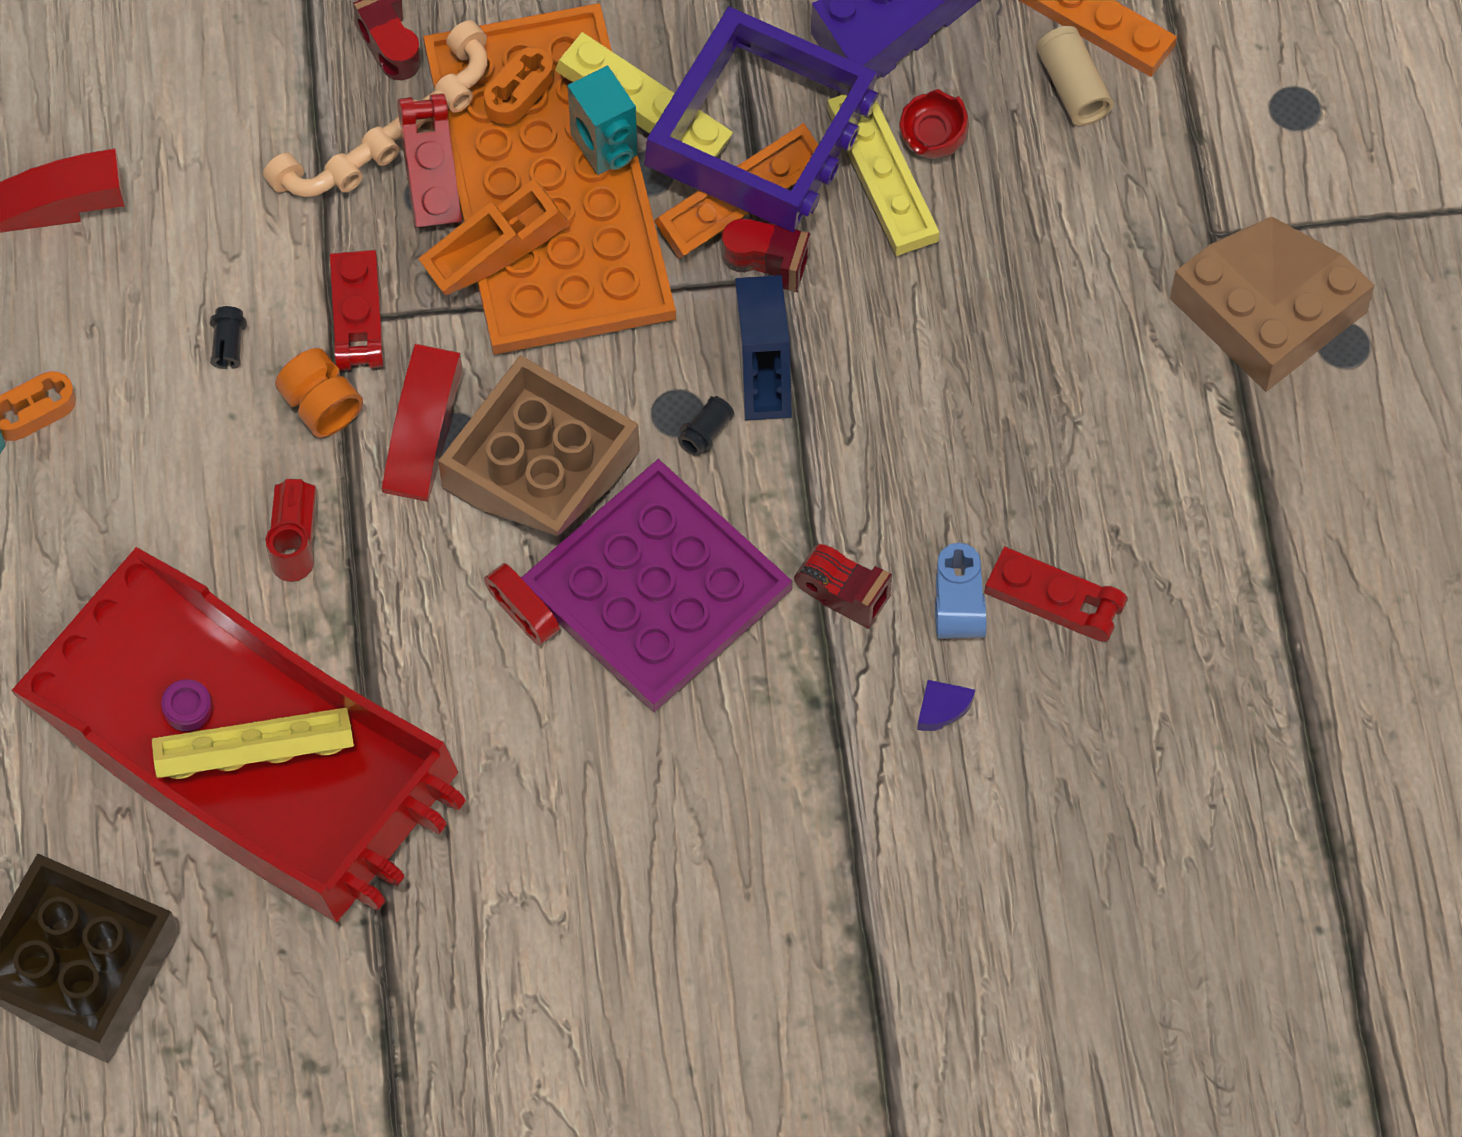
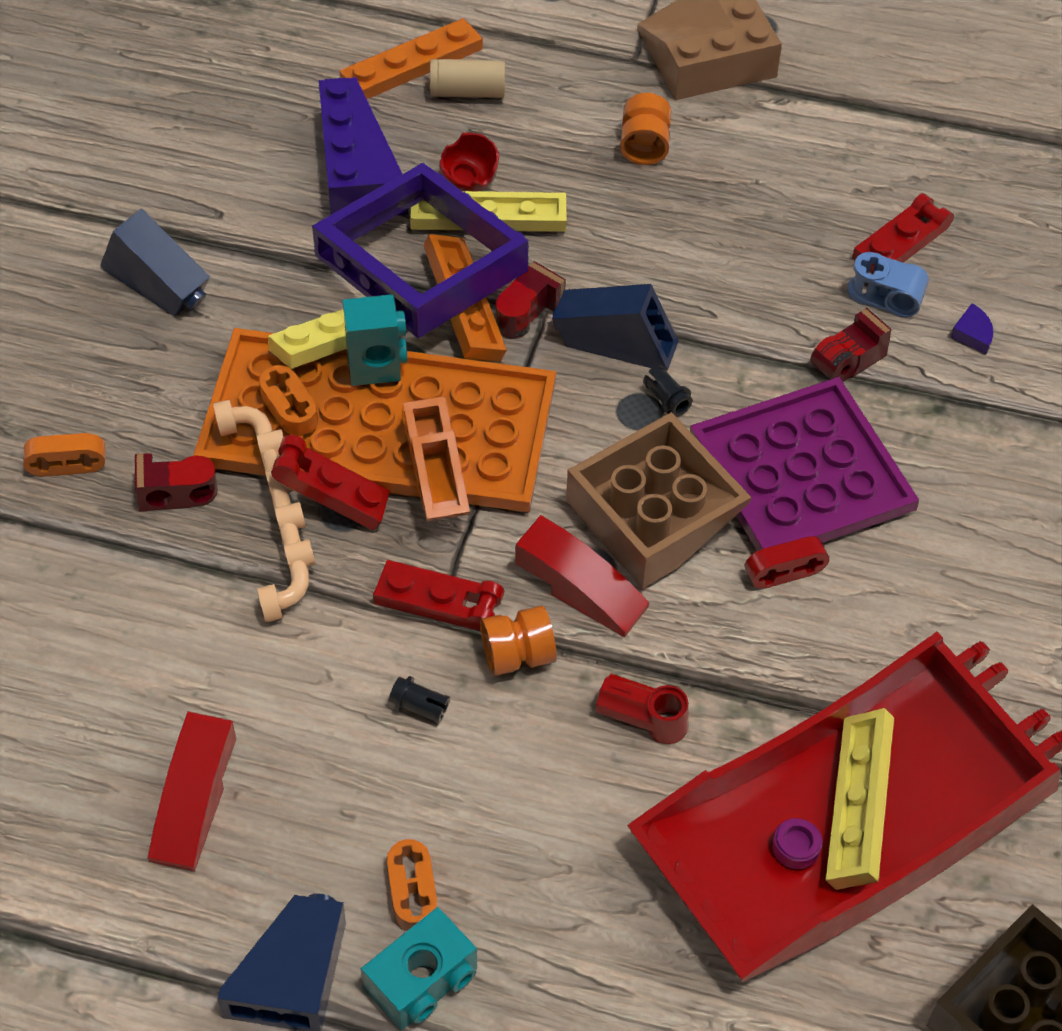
camera: 70 degrees left, 10 degrees down
(1086, 274) = (646, 129): none -> orange wheel

